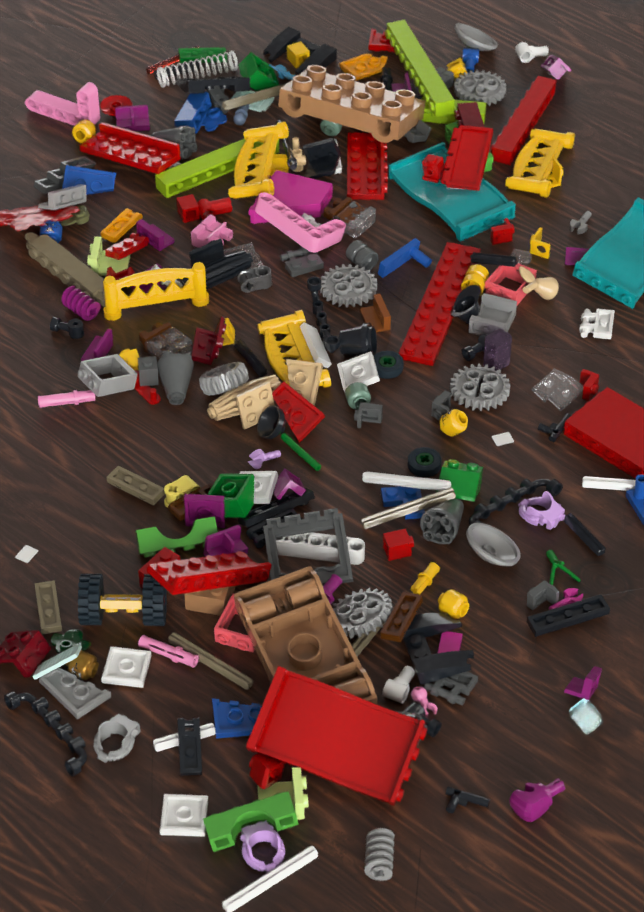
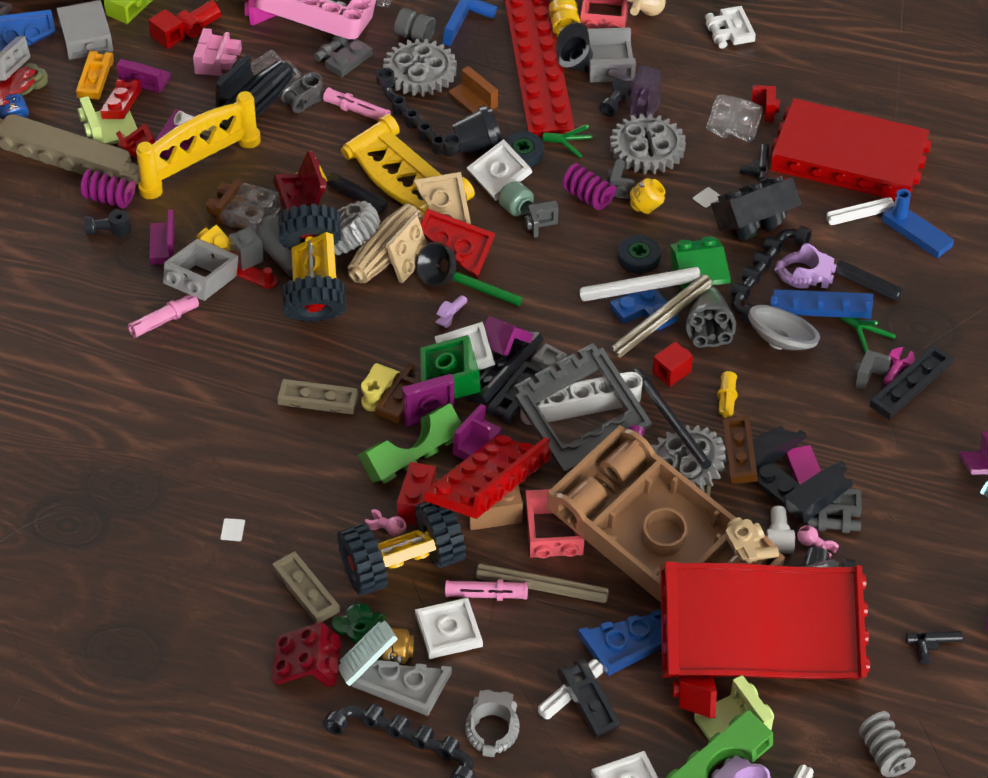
camera: 25 degrees left, 5 degrees up
(132, 192) = (85, 29): none -> light grey panel
(132, 587) = (394, 526): none -> bright pink arm
(170, 413) = (311, 237): none -> black plate
(283, 295) = (348, 102): none -> bright pink pin
(311, 508) = (547, 356): none -> light grey tile
(315, 345) = (426, 152): white tile -> none
(349, 673) = (745, 541): none -> tan piece
(370, 551) = (673, 420): none -> black bar
(415, 403) = (588, 187): none -> magenta piece
(421, 365) = (562, 138): none -> green plant
(453, 603) = (781, 413): yellow head -> none
(527, 451) = (756, 202): none -> black piece
(537, 539) = (824, 303): none -> blue hinge

